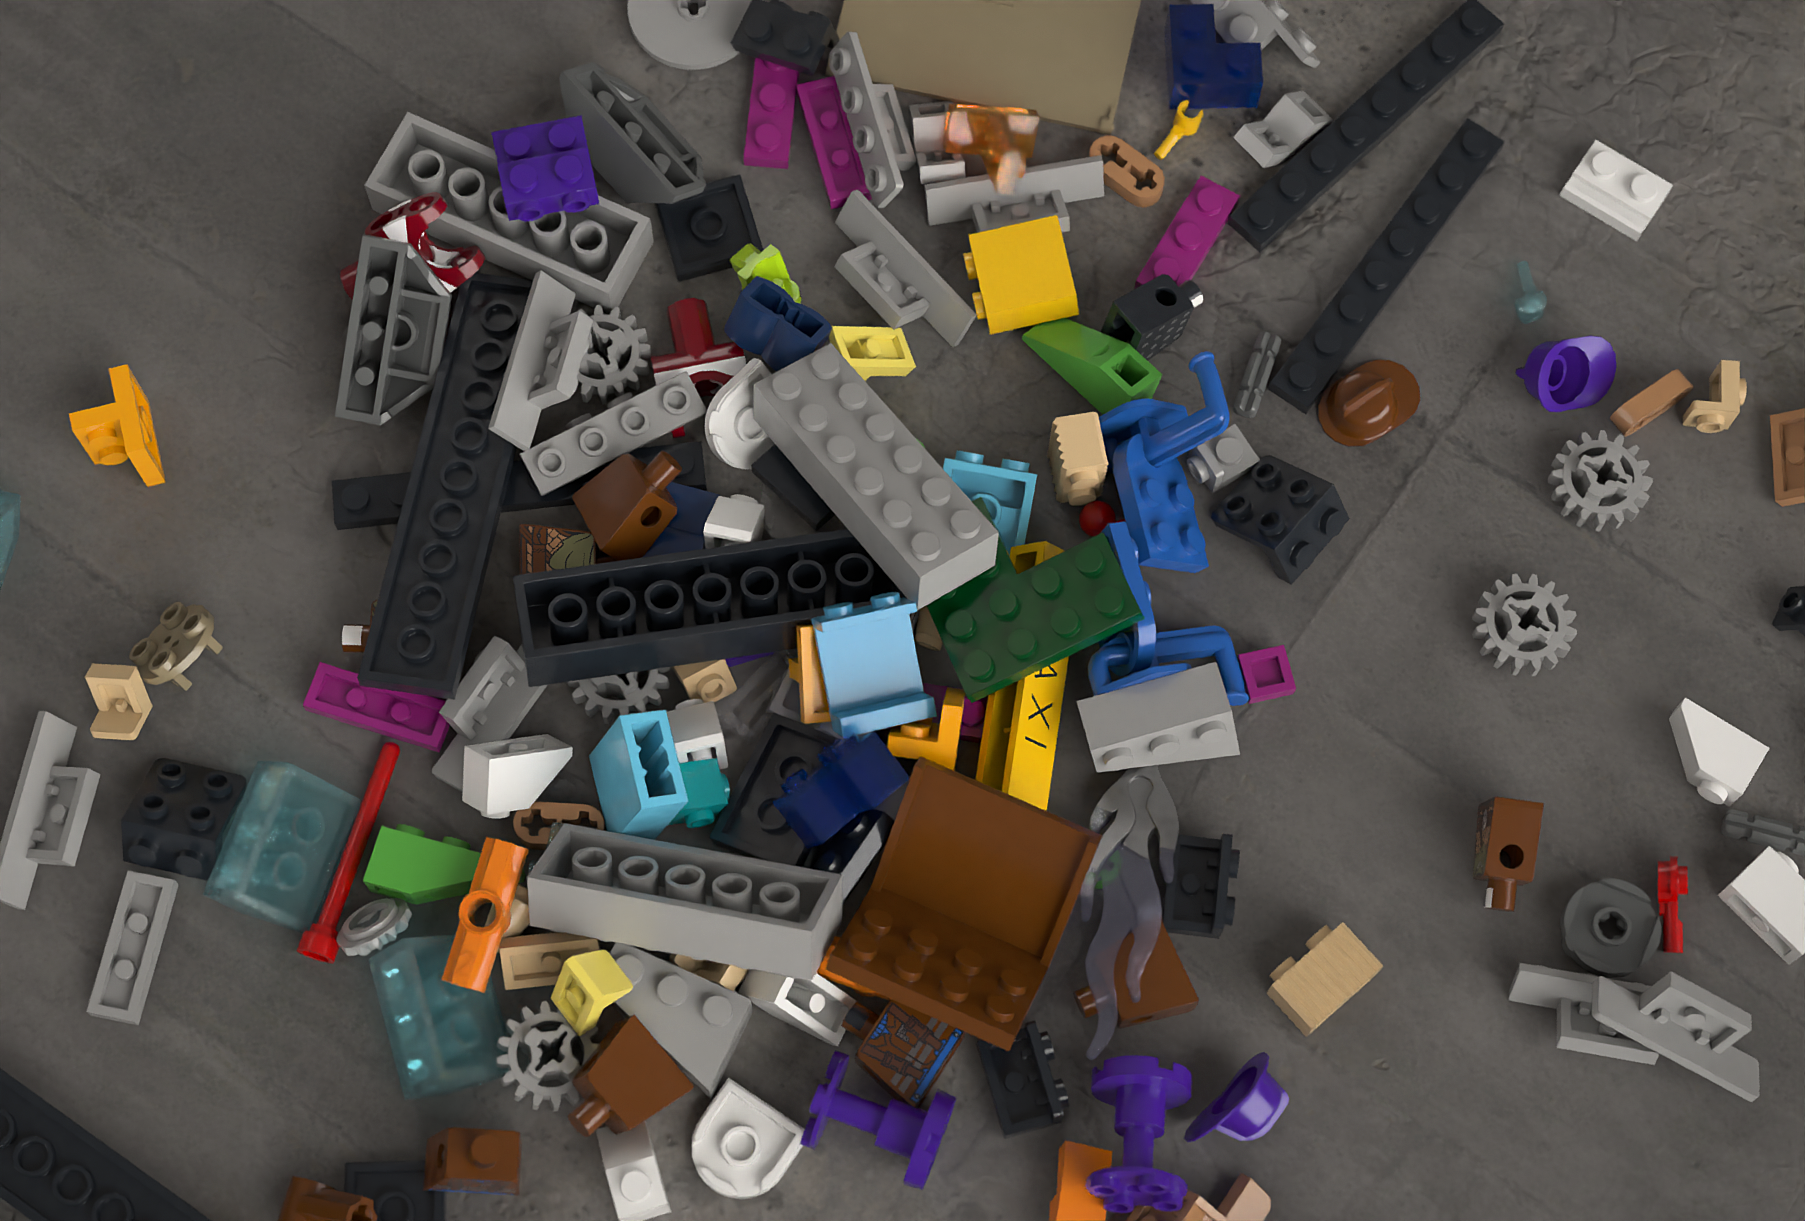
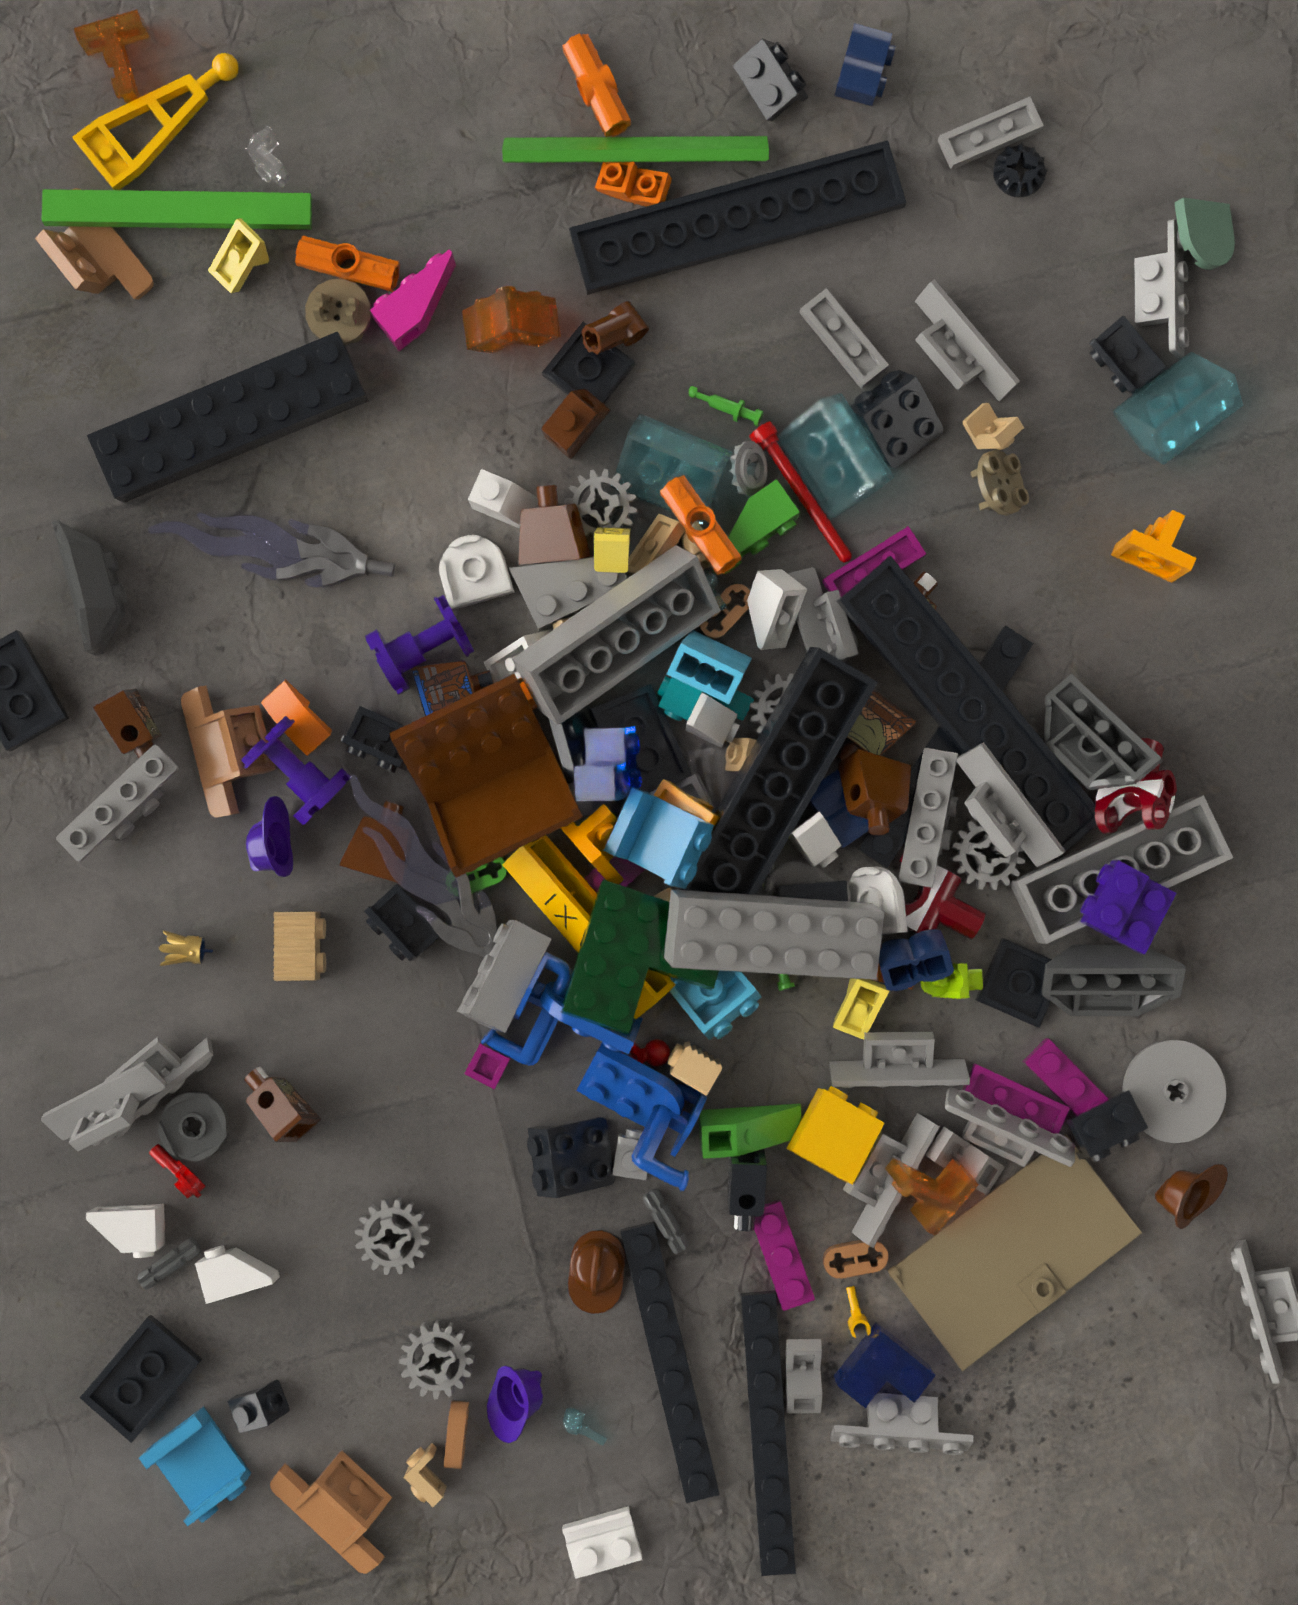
camera: 135 degrees right, 15 degrees up
(315, 1012) = (729, 407): none -> bright green piece
(1436, 1089) = (183, 949): none -> pearl gold piece

